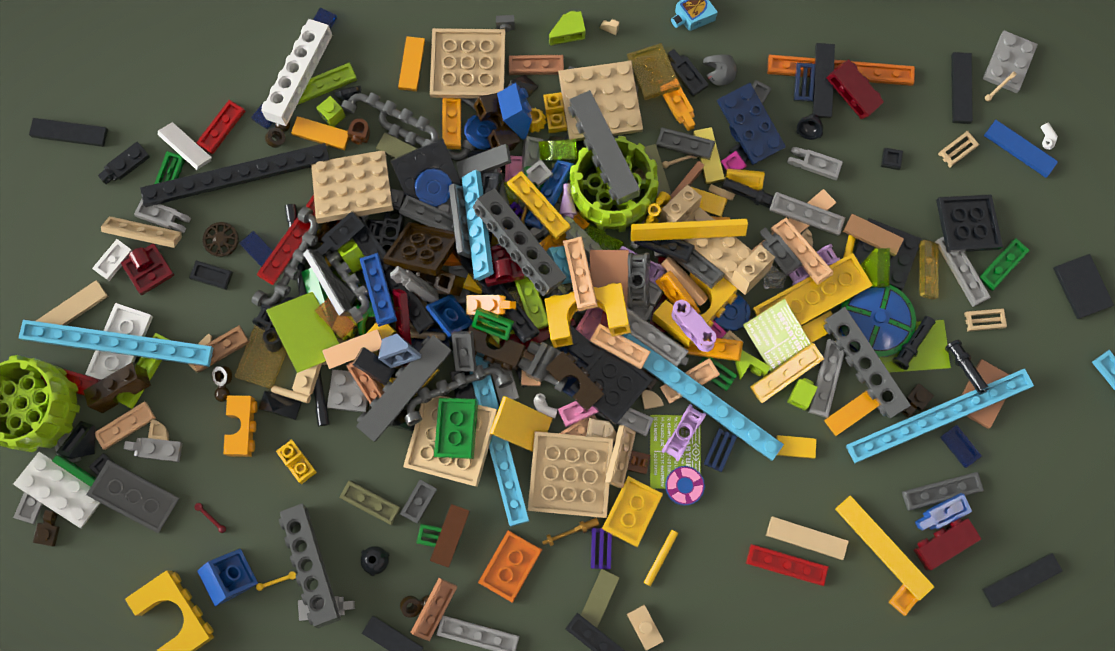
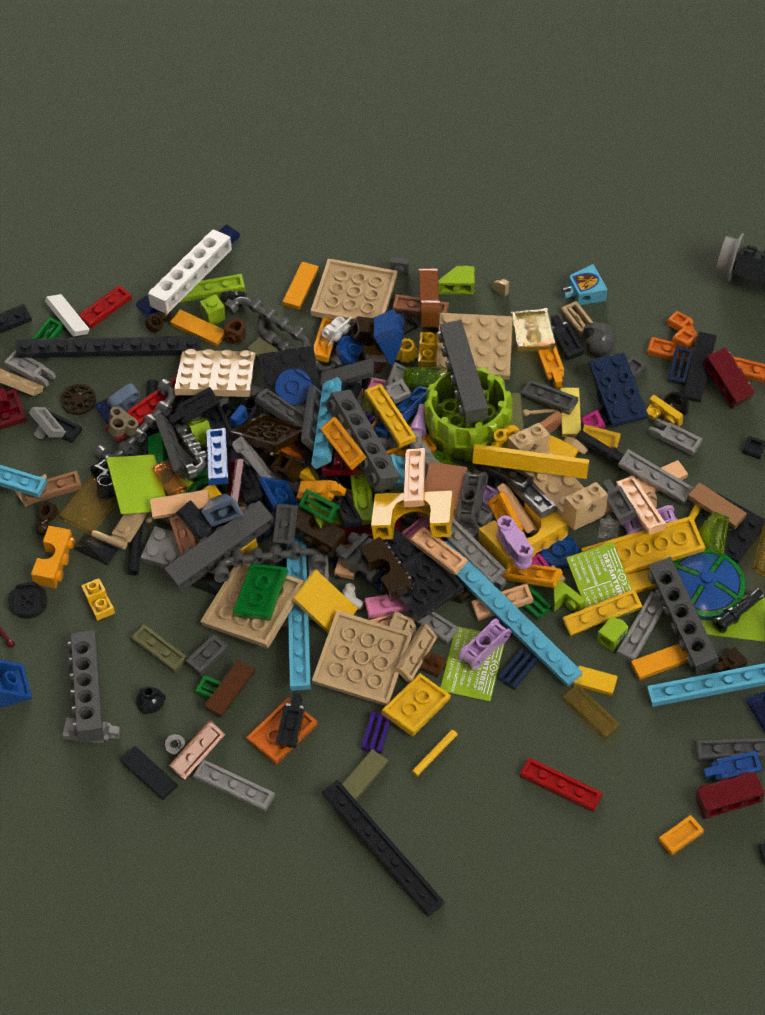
camera: 15 degrees right, 20 degrees down
(195, 277) = (47, 423): none -> light grey tile
(227, 477) = (28, 600): none -> black tile
(266, 234) = (124, 398): none -> sand blue piece
(272, 264) = (122, 418): none -> dark tan piece
(292, 575) = (66, 697): yellow hinge -> none
(388, 236) = (239, 417): none -> blue tile
(460, 109) = (336, 329): none -> white hinge
(502, 253) = (343, 443): none -> light orange tile
(518, 561) = (291, 723): none -> black hinge
(547, 68) = (429, 297): none -> dark orange beam
(584, 526) = (363, 709): pearl gold piece -> none
(645, 627) = (402, 811): tan tile -> none
(651, 400) = (459, 611): tan tile -> none
(682, 36) = (568, 308): none -> tan tile
(684, 485) = (474, 692): tile -> none
(794, 135) = (660, 408): none -> yellow hinge
(798, 34) = (687, 335): none -> orange tile
(799, 480) = (591, 711): none -> clear yellow tile
(807, 538) = (587, 764): tan tile -> none
(884, 548) = (664, 786): yellow tile -> none

